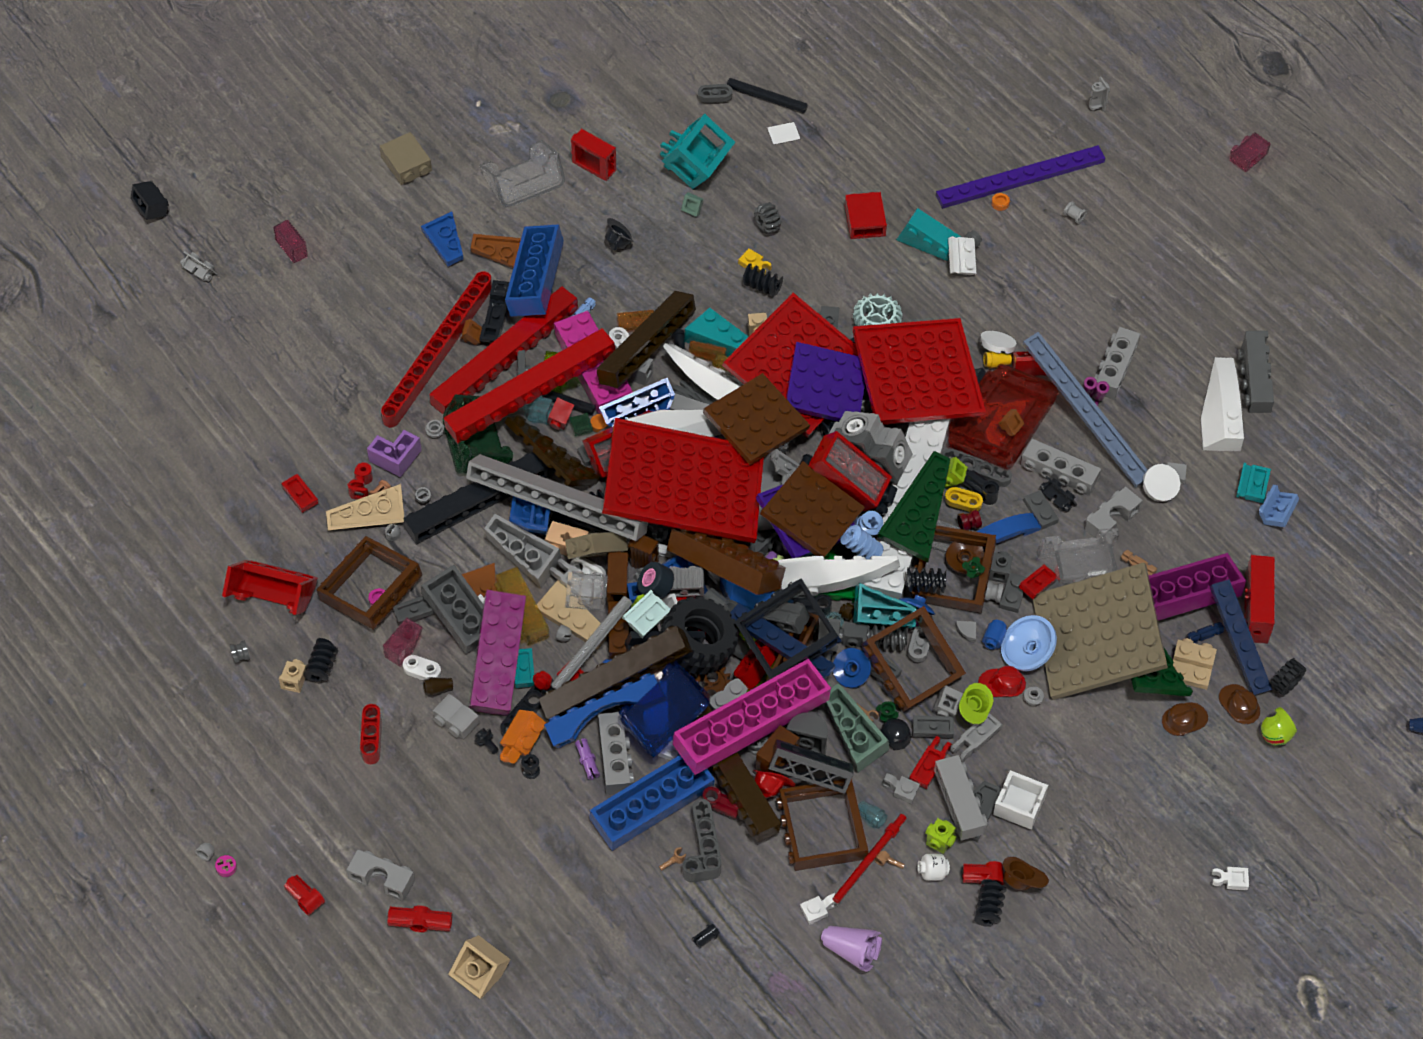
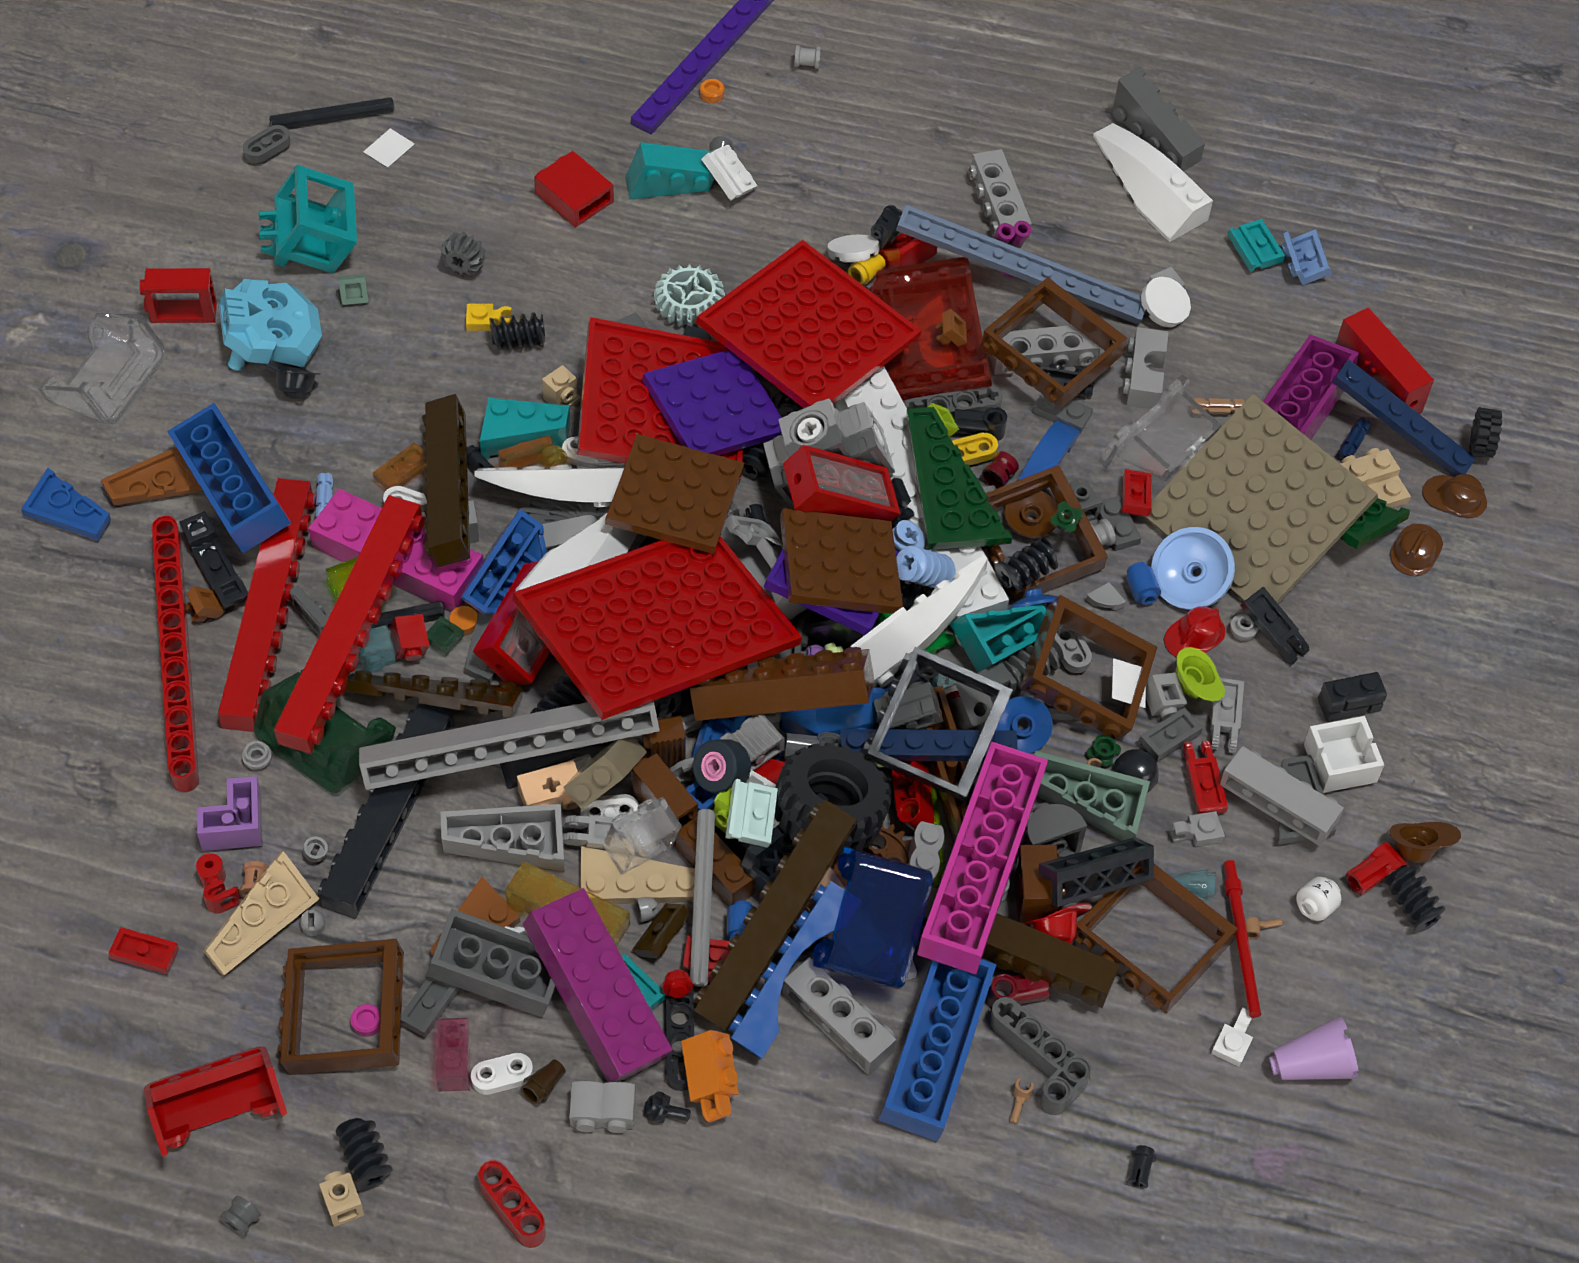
camera: 40 degrees left, 0 degrees up
(526, 763) = (755, 1096): black bush -> none
(529, 516) = (488, 786): blue wedge -> none
(555, 651) = (661, 930): none -> dark brown plate
(587, 759) = (811, 1046): medium lavender pin -> none
(619, 190) = (268, 324): none -> medium azure brick
(847, 611) = (957, 658): dark brown plate -> none
(928, 678) = (1125, 681): none -> white sticker
(940, 835) = (1295, 856): lime brick -> none
(1018, 339) = (886, 225): none -> black hinge
(1049, 703) = (1275, 625): none -> black hinge
(1055, 435) = (1074, 313): none -> reddish brown window
(1058, 773) = (1352, 696): none -> black brick
(1279, 728) = (1525, 497): lime helmet -> none

